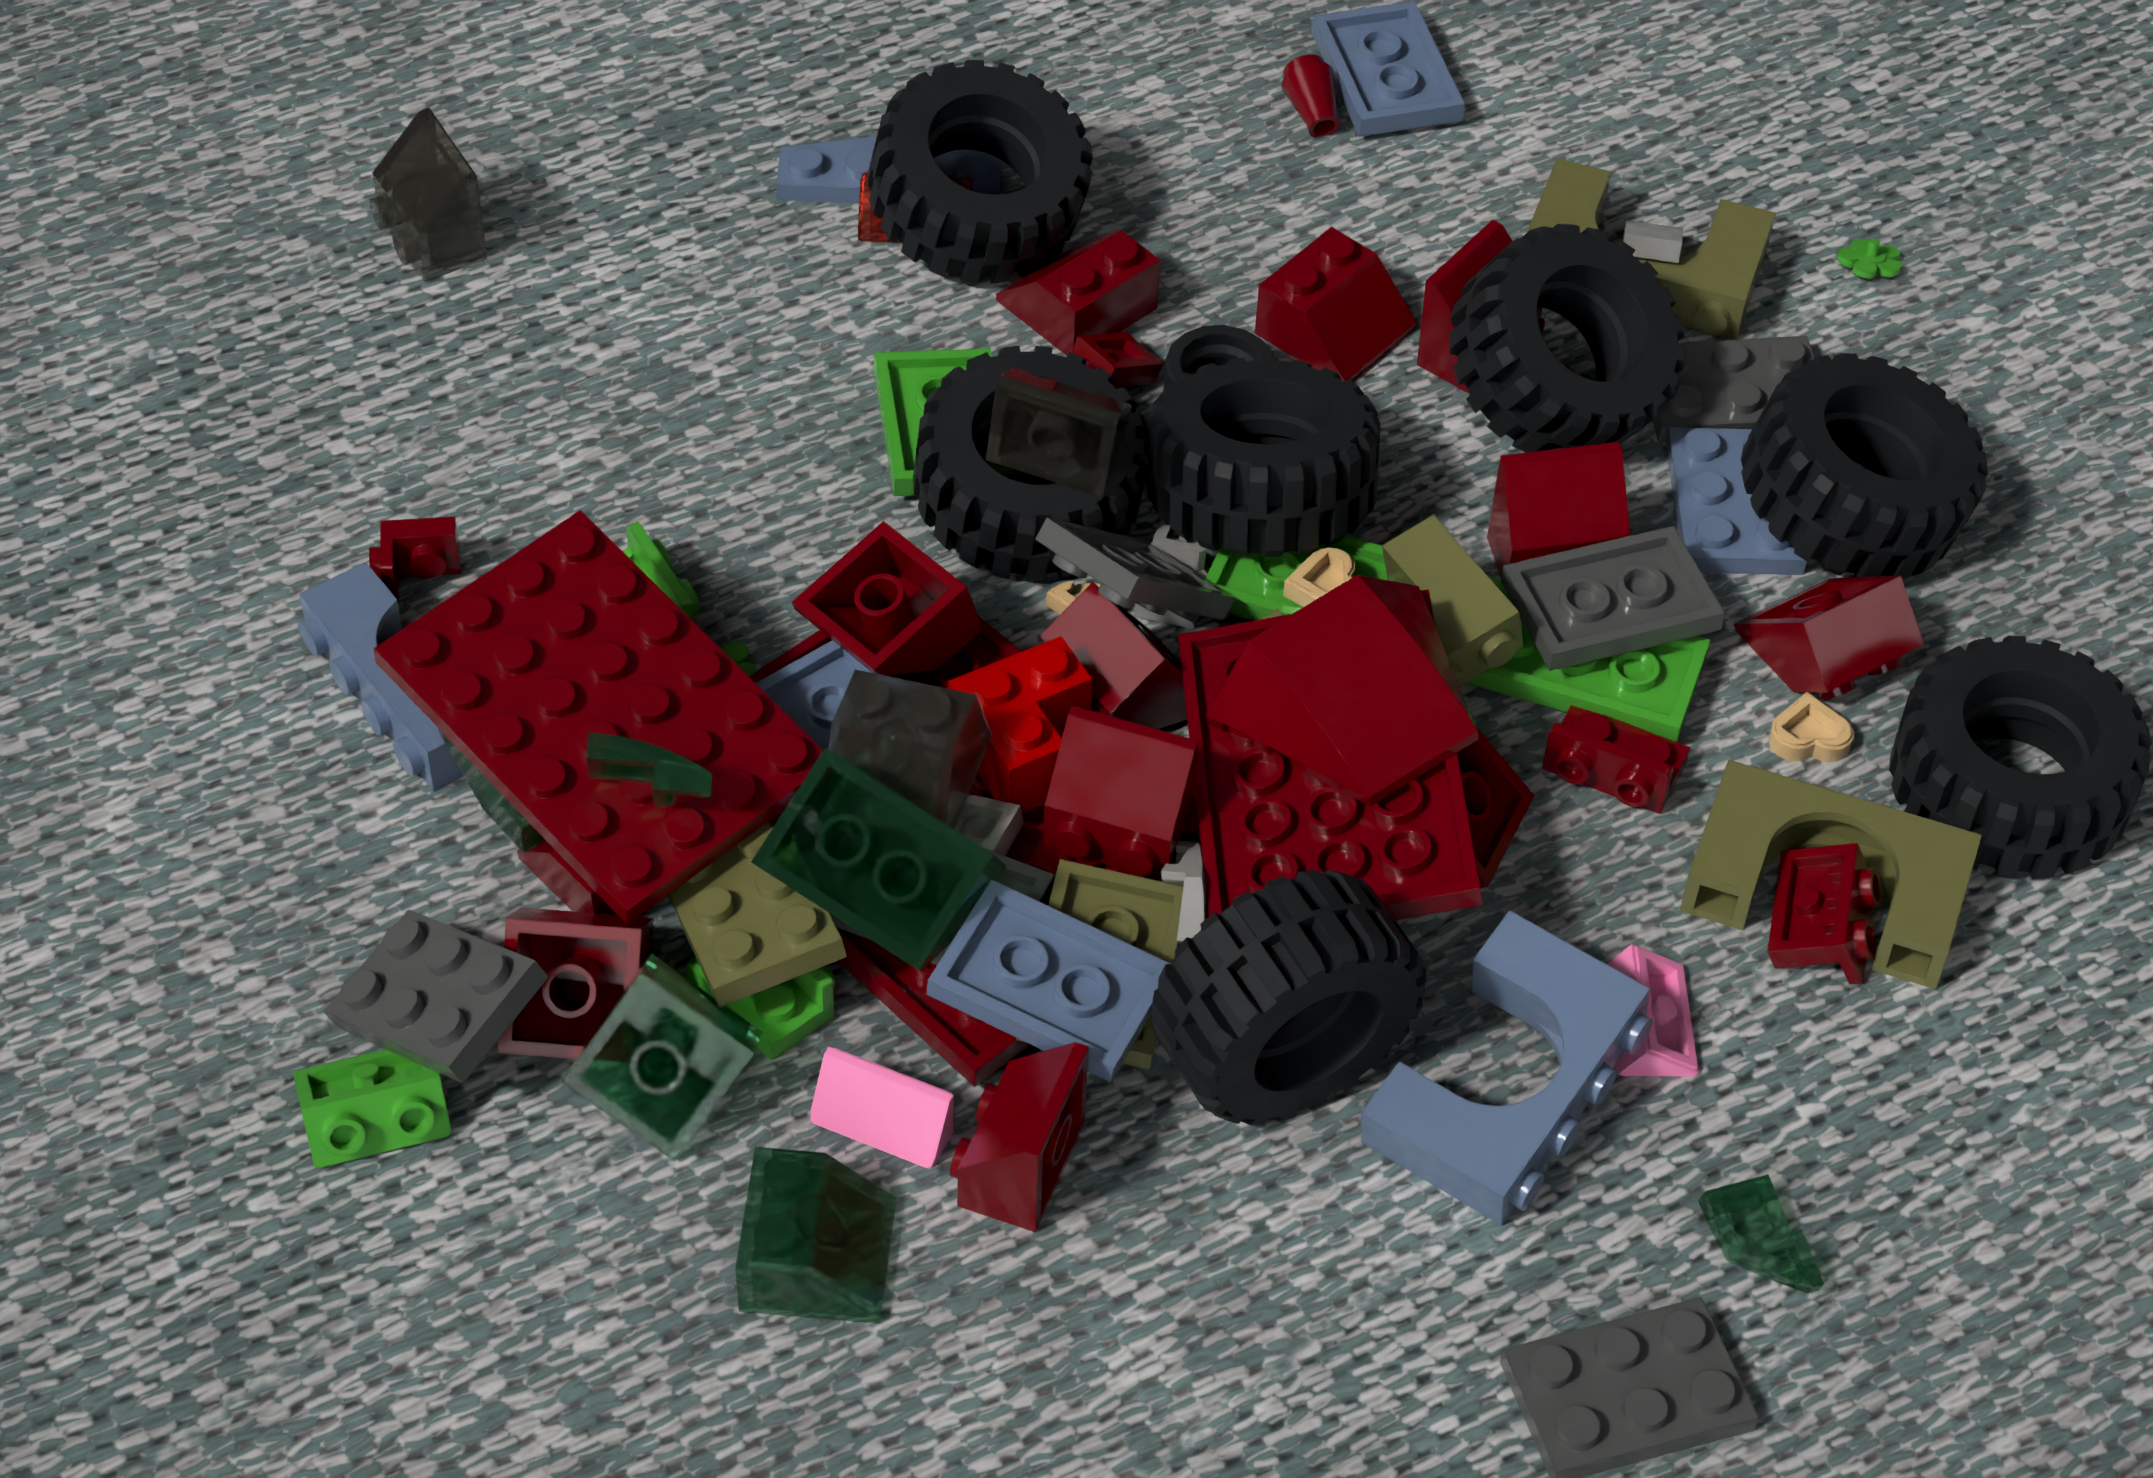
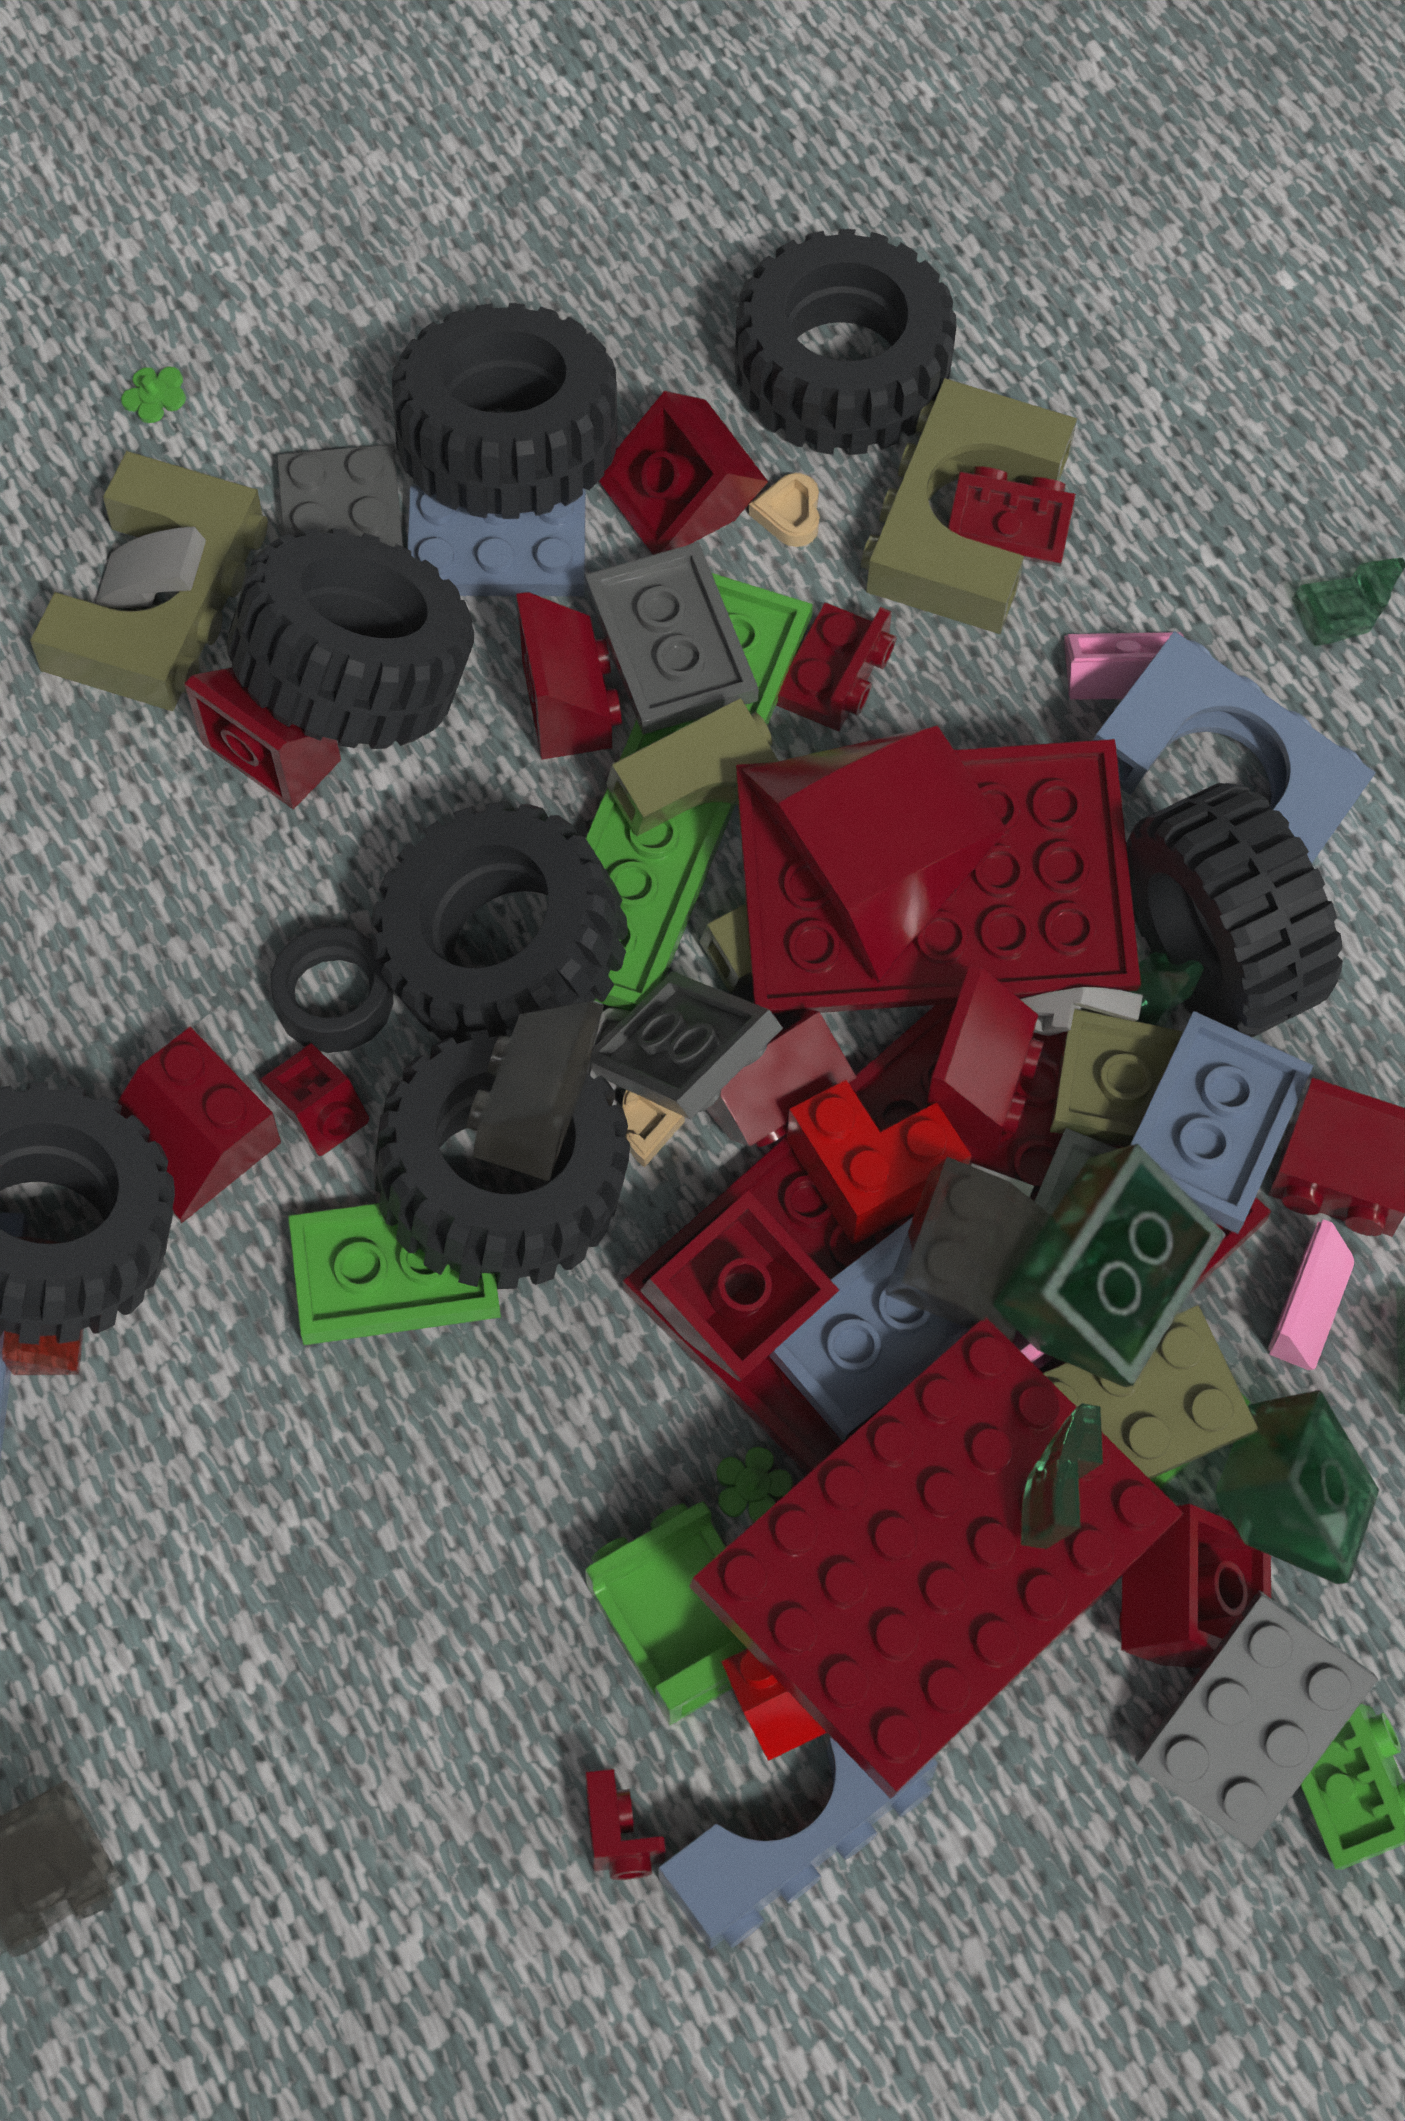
camera: 90 degrees left, 15 degrees up
(1319, 575) = (651, 888): tan tile -> none
(1333, 307) = (231, 876): dark red slope -> none

